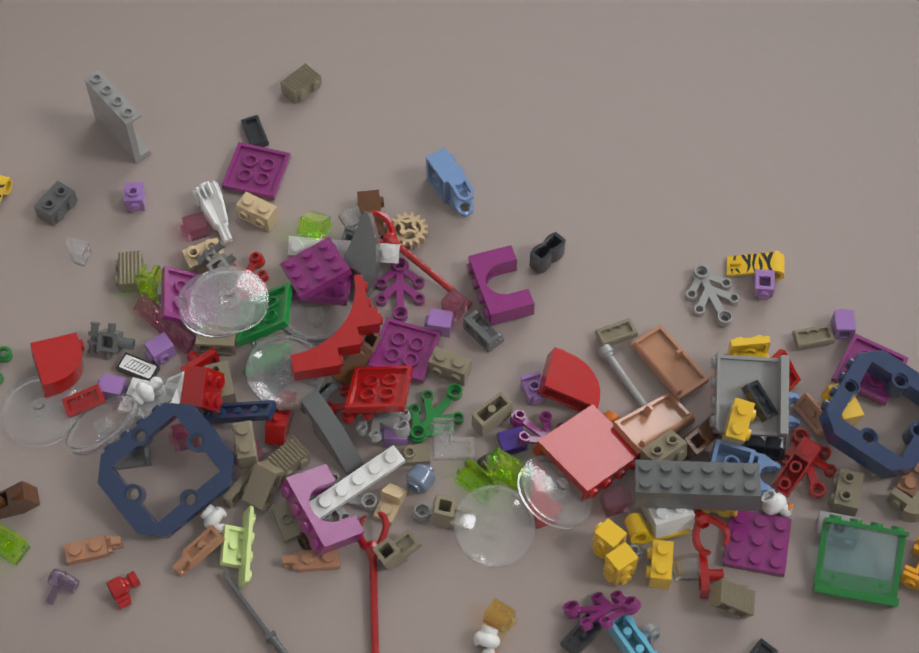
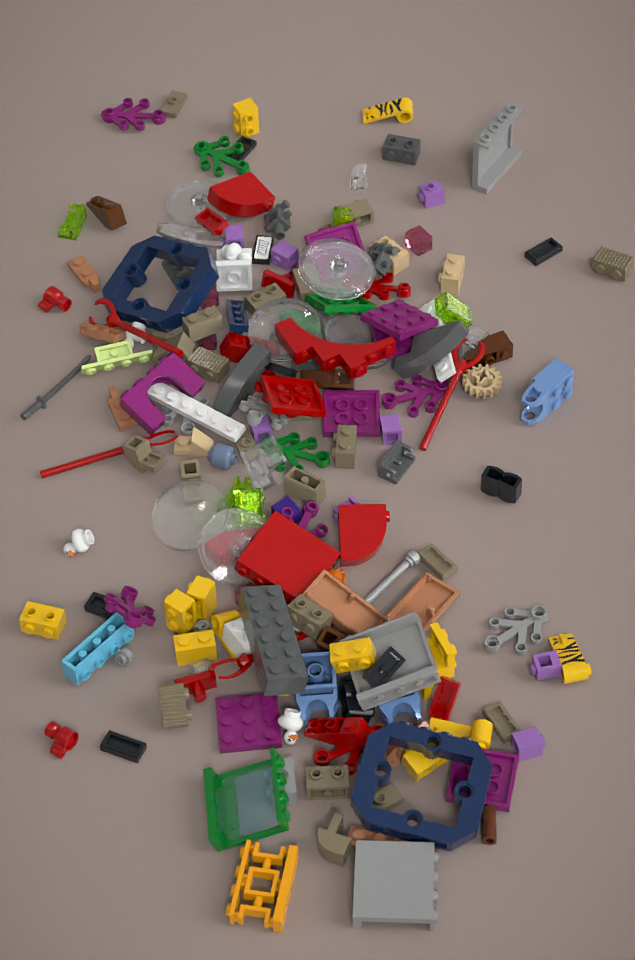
camera: 75 degrees right, 10 degrees down
(61, 581) = (48, 264): clear purple piece -> none
(191, 532) = (114, 321): none -> red piece
(203, 388) = (241, 279): red brick -> none
(211, 201) = (445, 241): white piece -> none
(256, 171) = (499, 263): magenta plate -> none
(455, 302) = (413, 432): clear pink brick -> none
(498, 307) = (462, 444): magenta arch -> none
(500, 616) = (105, 544): clear yellow brick -> none
(818, 370) = (479, 732): none -> yellow door

